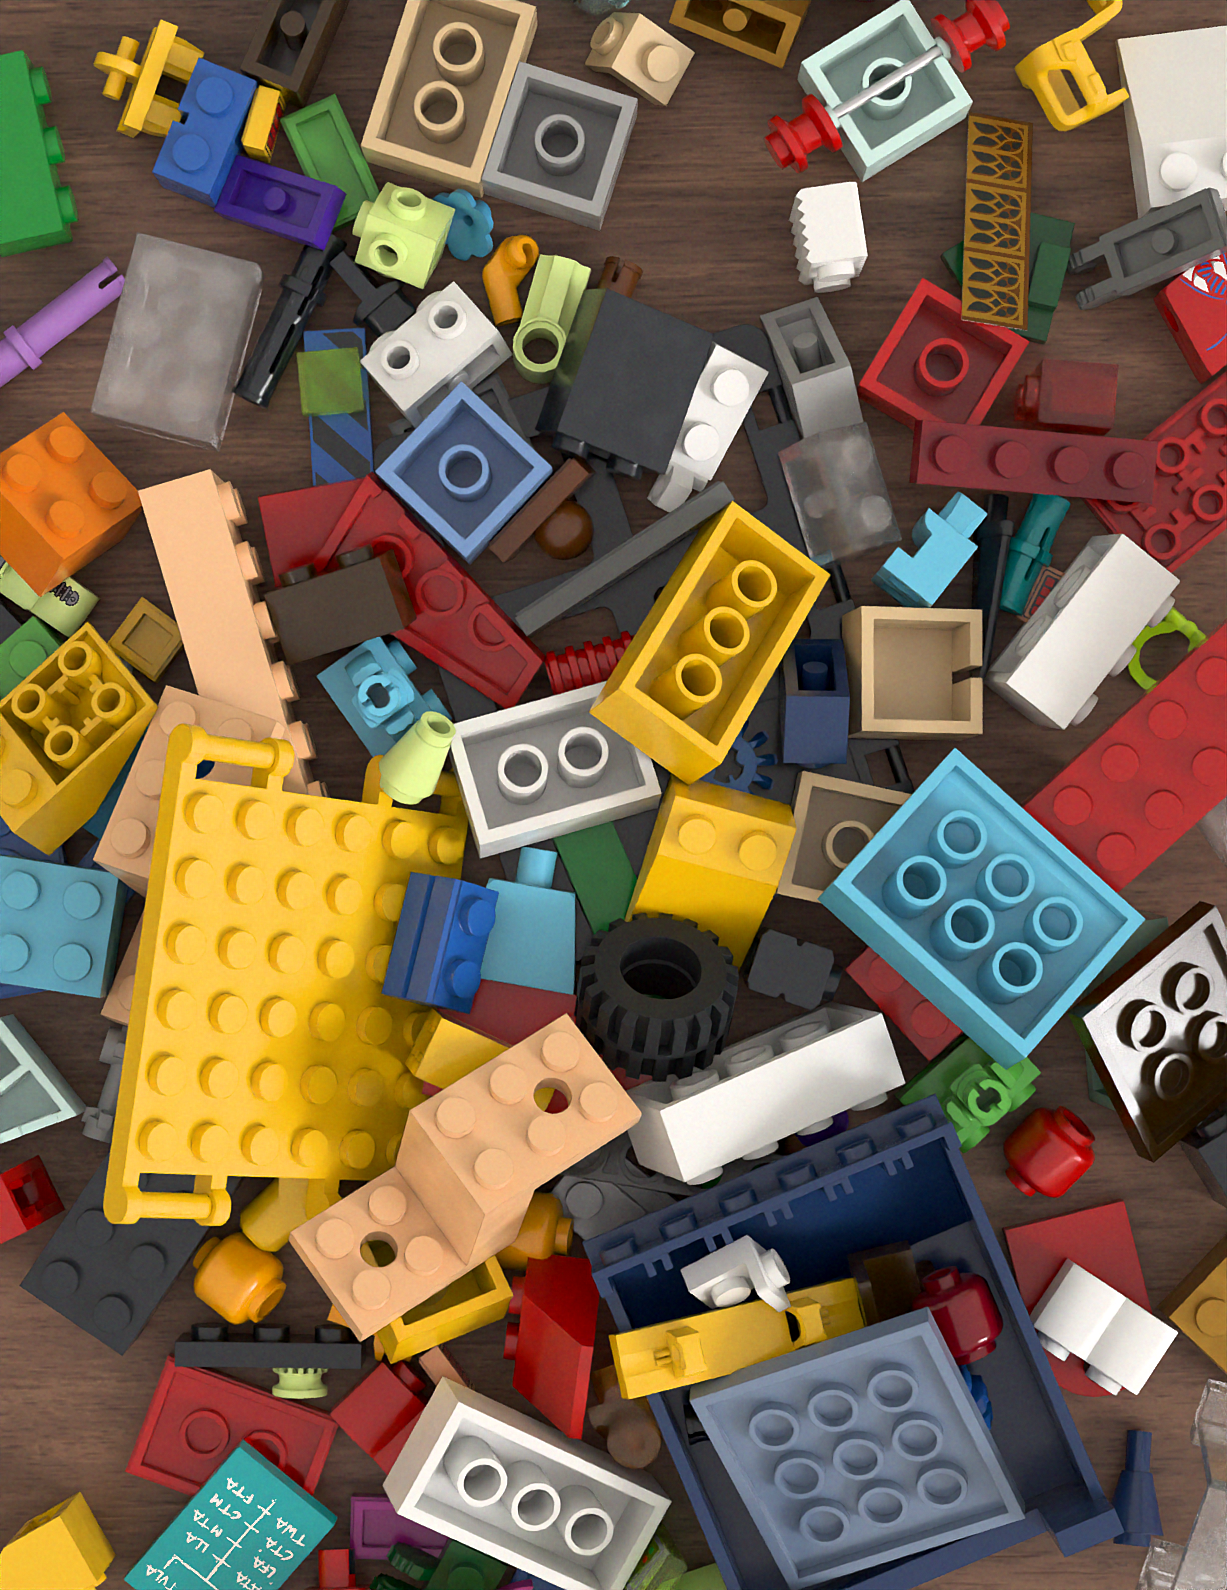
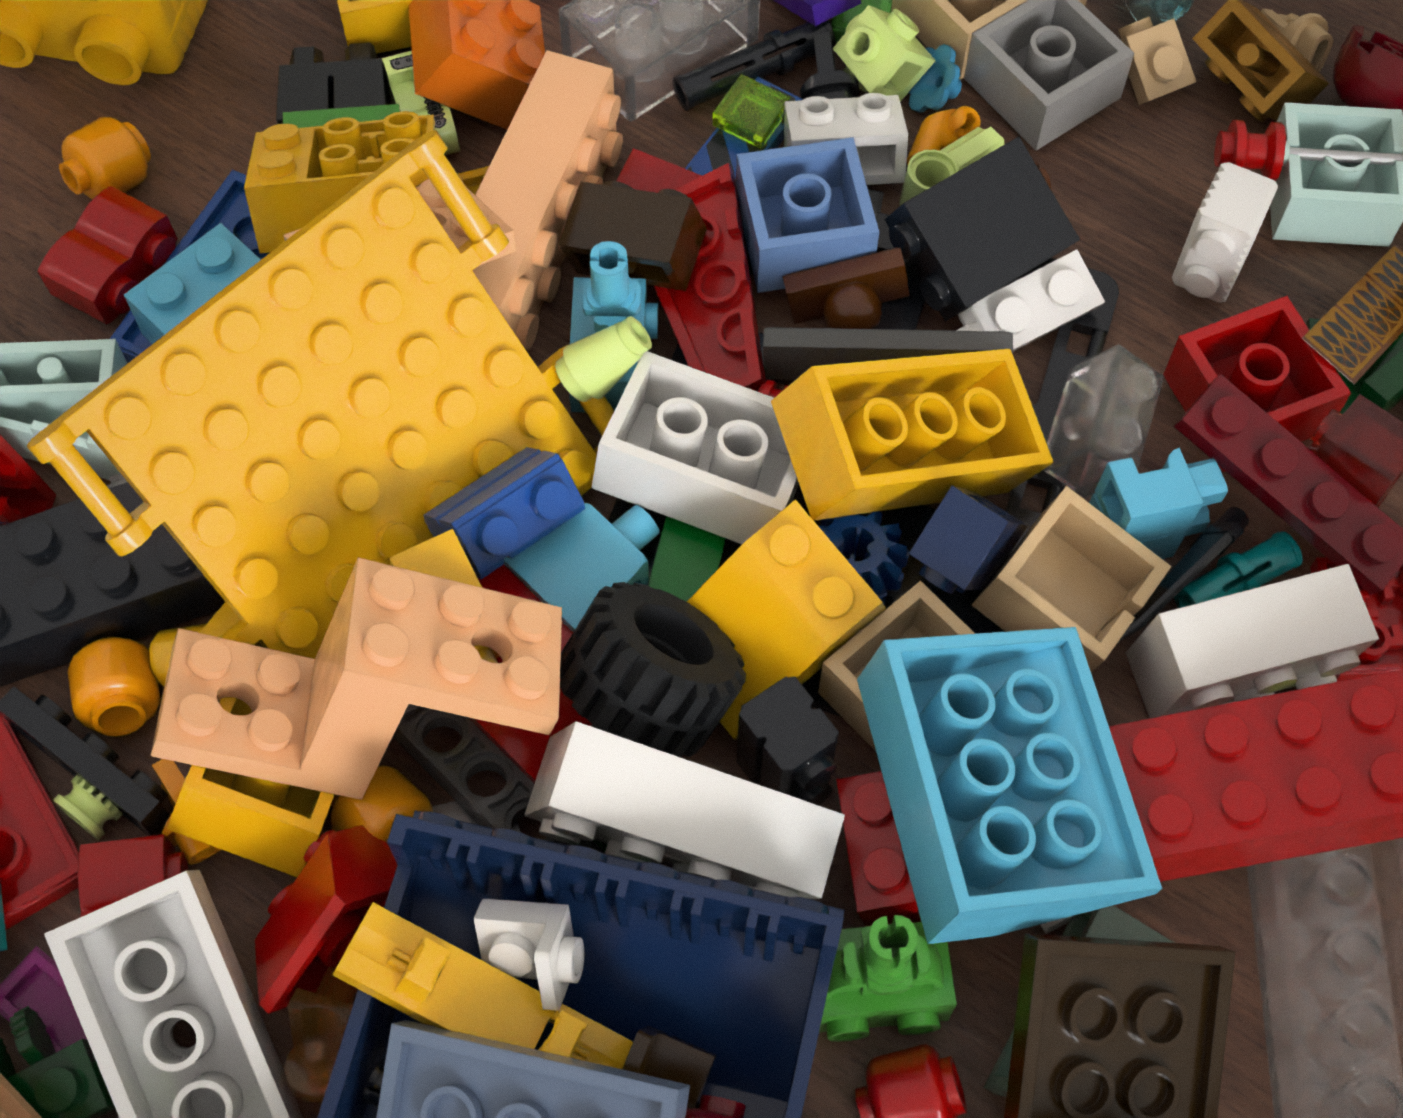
camera: 35 degrees right, 25 degrees down
(440, 1362) = (219, 879): nougat tile -> none
(812, 367) = (1145, 322): light grey slope -> none

